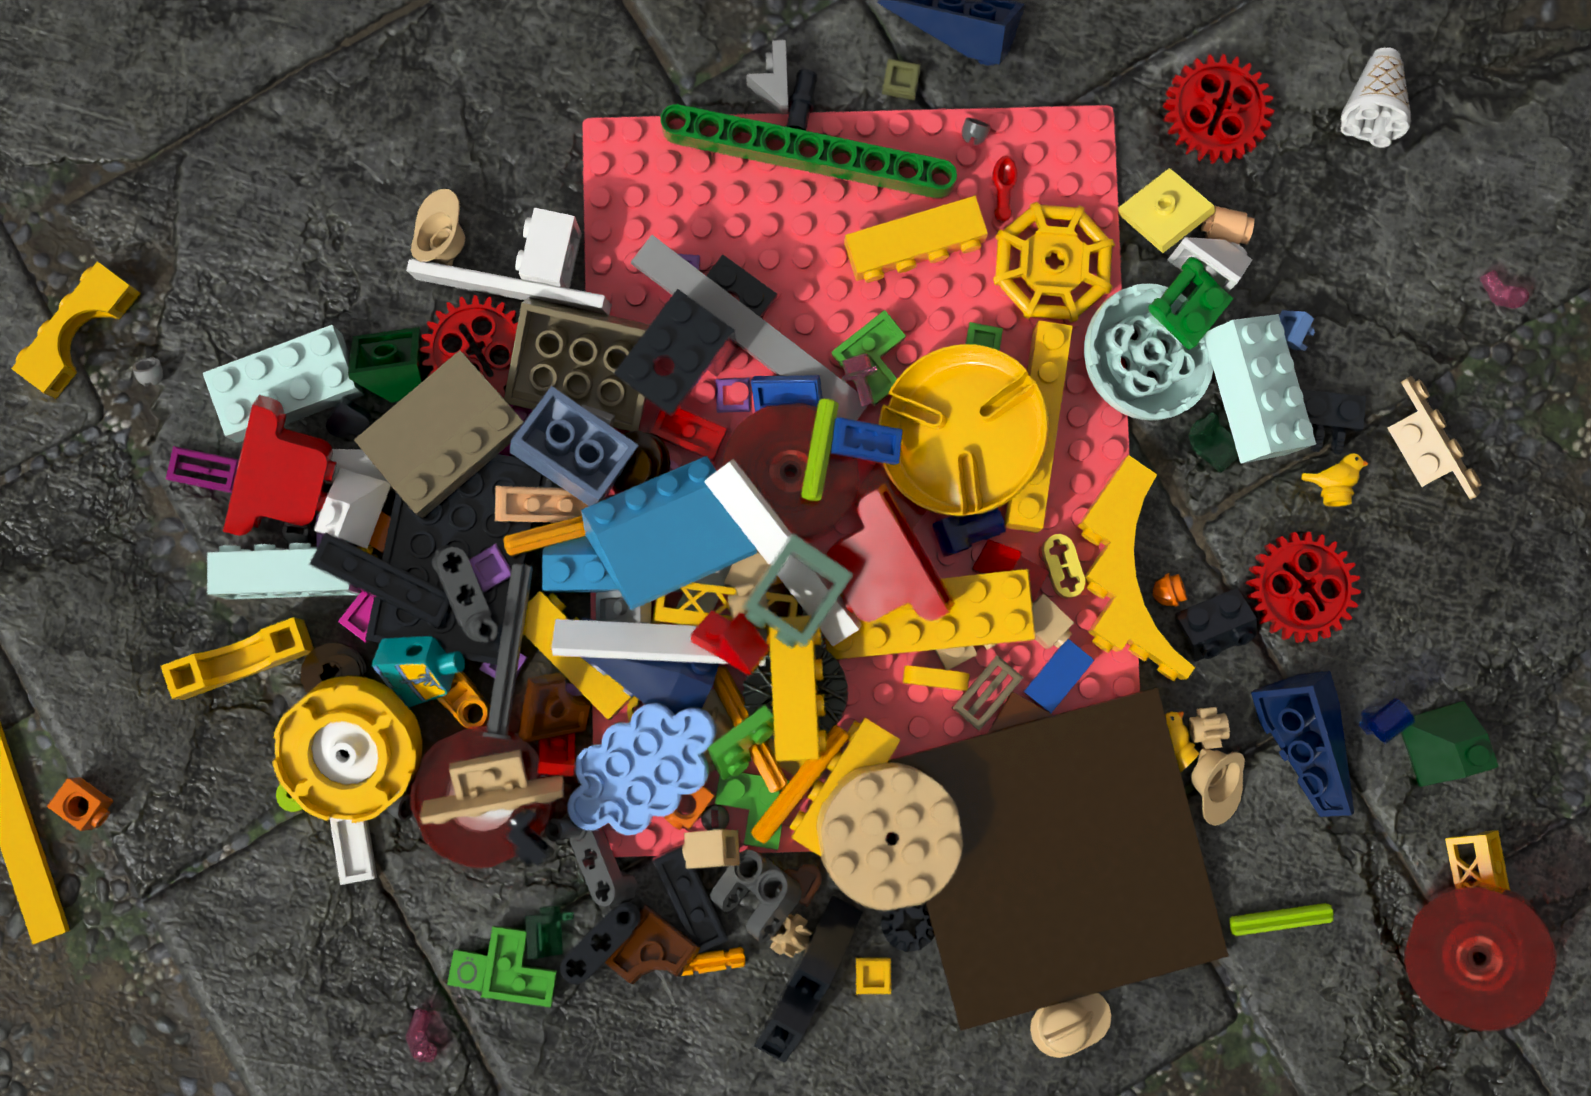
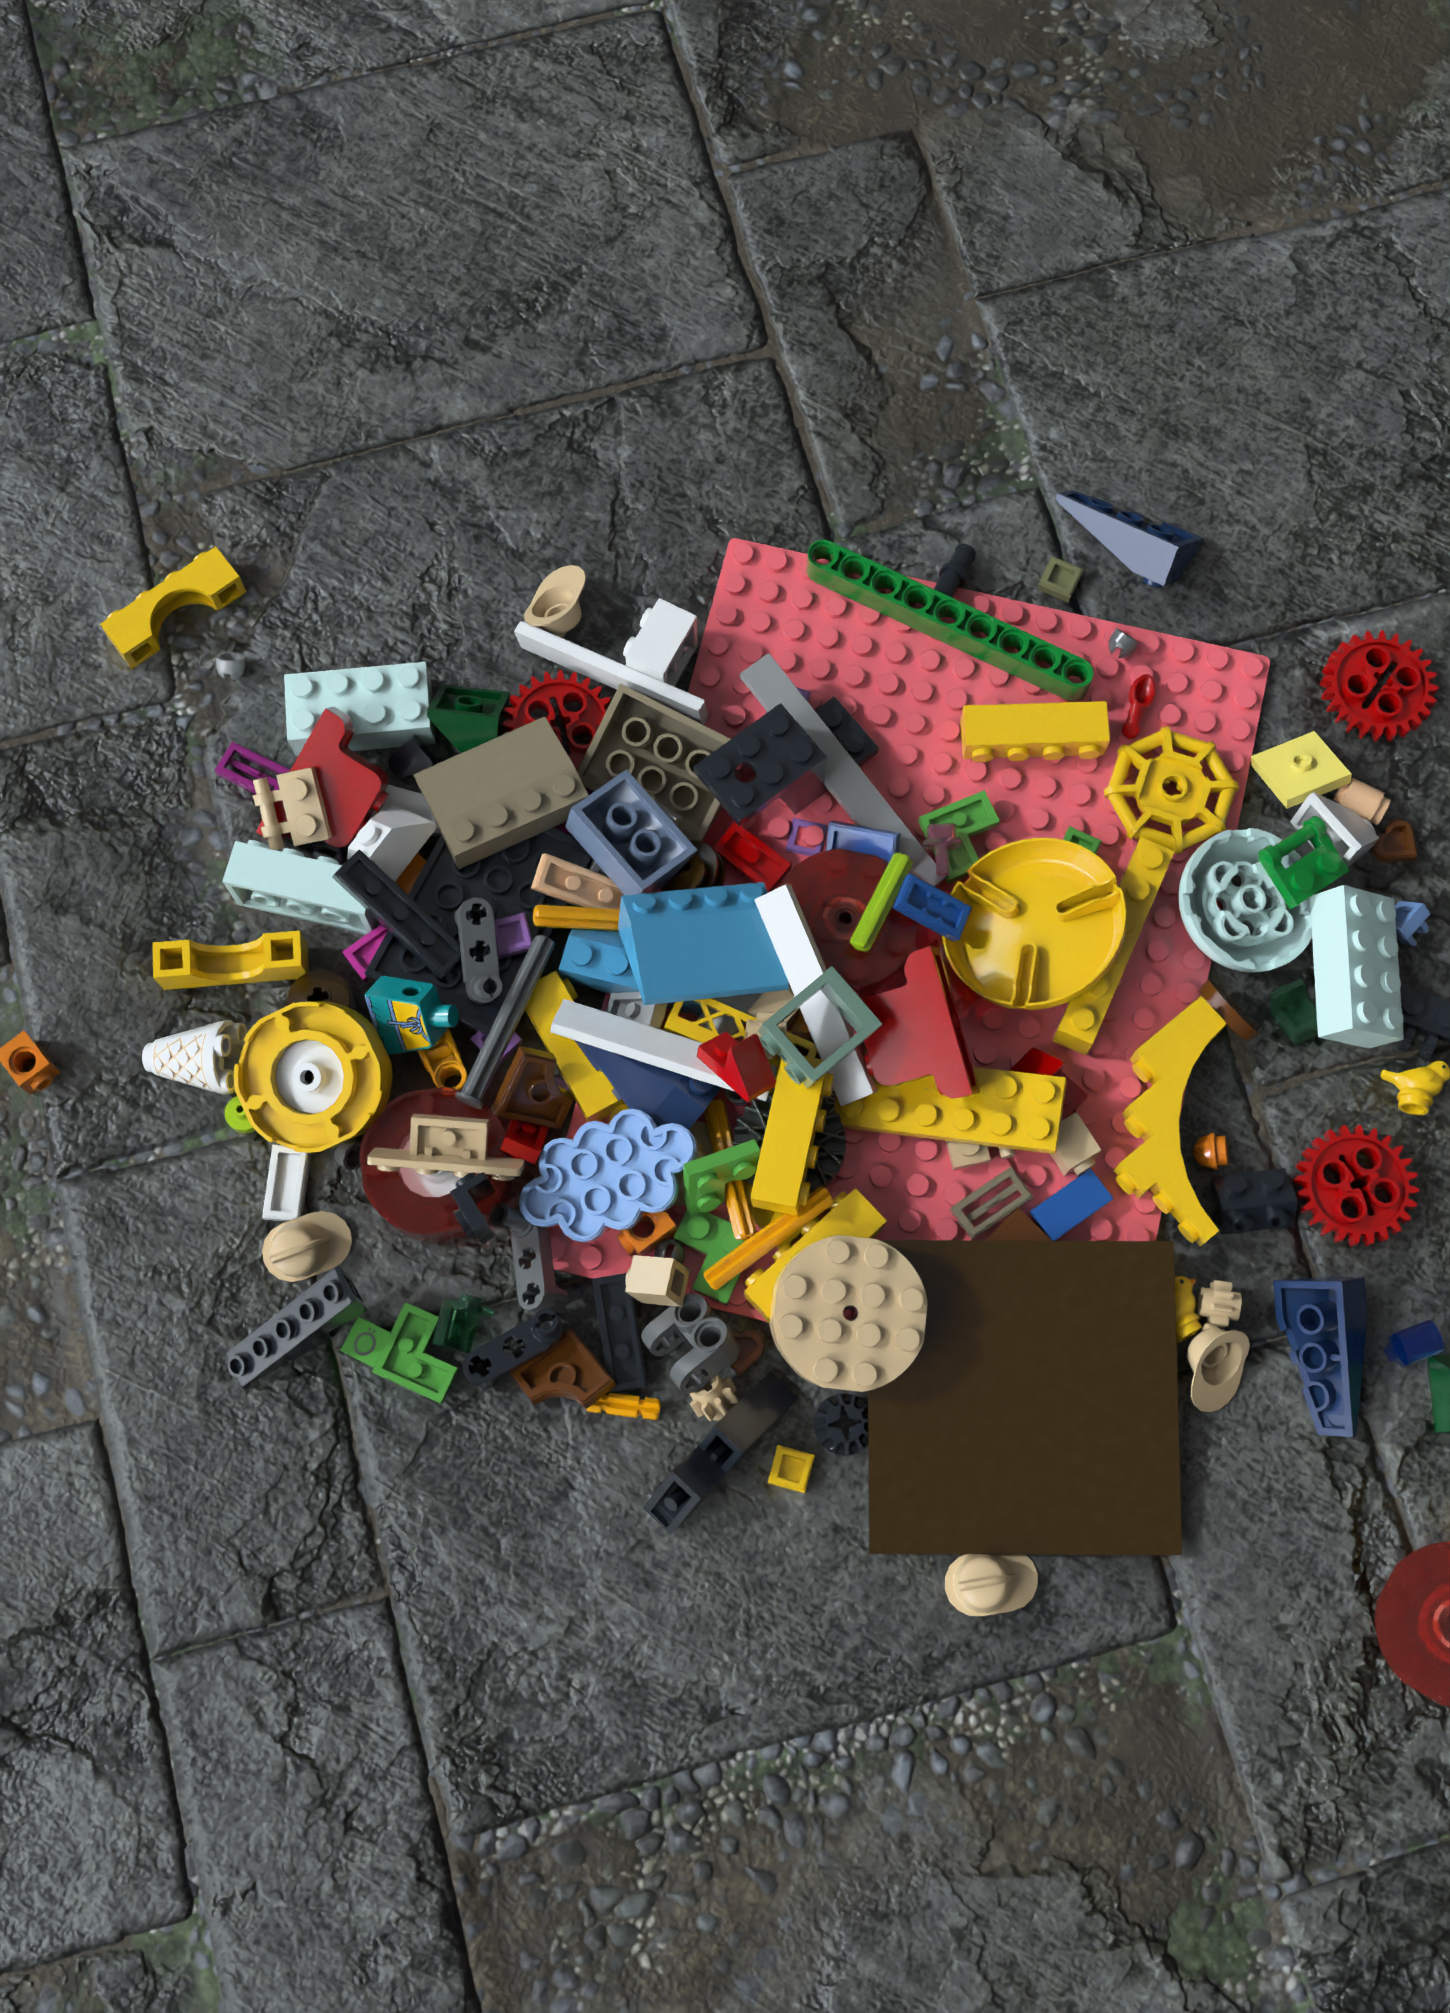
camera: 20 degrees right, 10 degrees down
(237, 756) = (199, 1056): none -> white cone
(258, 496) = (302, 806): none -> tan plate
(388, 898) = (306, 1246): none -> tan piece
(402, 979) = (297, 1327): none -> black slope
(416, 1037) = (291, 1399): clear pink arm -> none
(772, 85) = (929, 550): light grey slope -> none
(936, 678) = (940, 1171): yellow beam -> none
(960, 532) = (1003, 1031): clear blue piece -> none
(1071, 562) = (1113, 1094): light yellow beam -> none
(1151, 455) = (1228, 1010): none -> reddish brown tile
(1267, 255) = (1396, 843): none -> reddish brown tile
(1281, 919) = (1249, 1532): lime axle -> none

